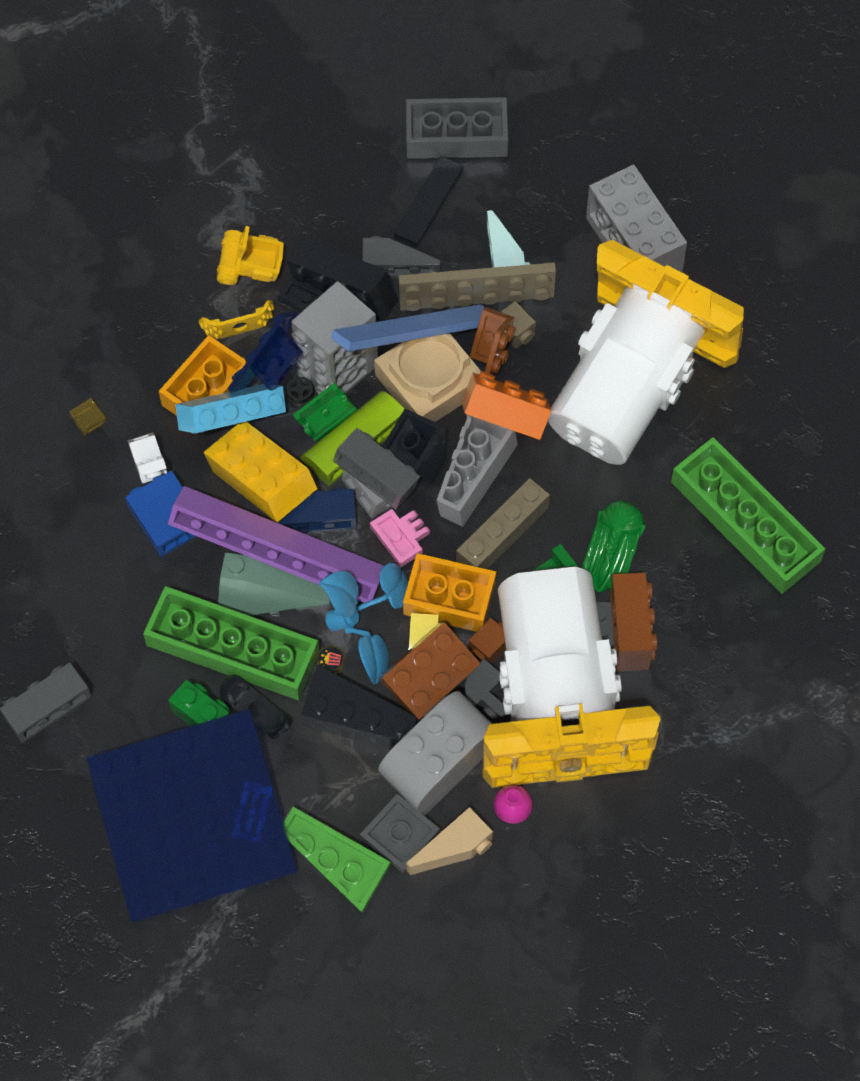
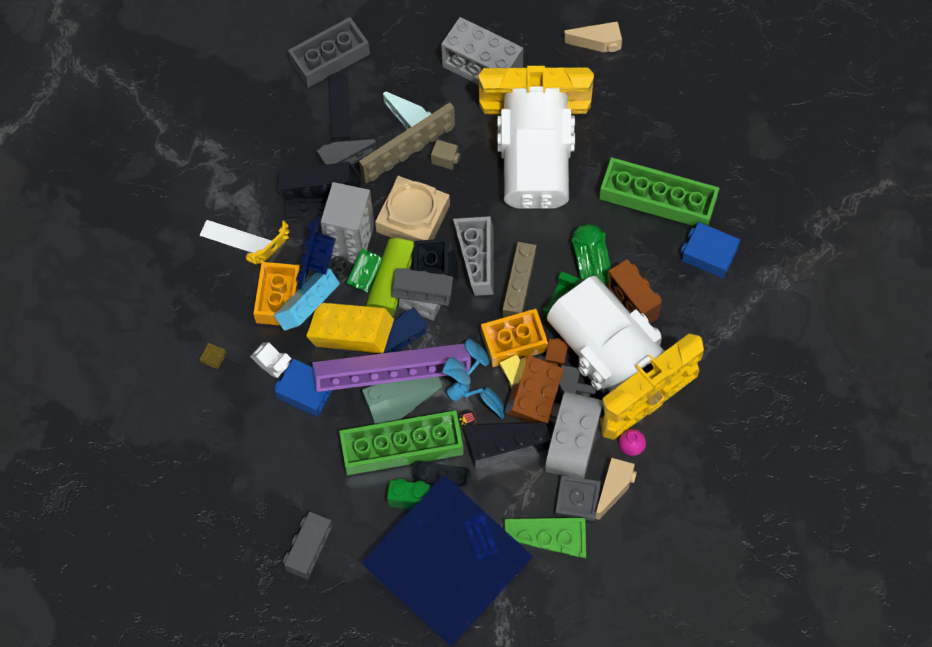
camera: 30 degrees left, 0 degrees up
(203, 289) = (233, 237): none -> white sticker
(249, 256) = (251, 200): yellow piece -> none
(400, 535) = (459, 320): bright pink hinge -> none
(407, 328) = (392, 187): medium blue tile -> none
(492, 338) = (440, 170): dark orange bracket -> none
(506, 404) = (476, 204): orange brick -> none
(767, 621) = (710, 249): none -> blue brick
(801, 282) = (597, 37): none -> tan slope

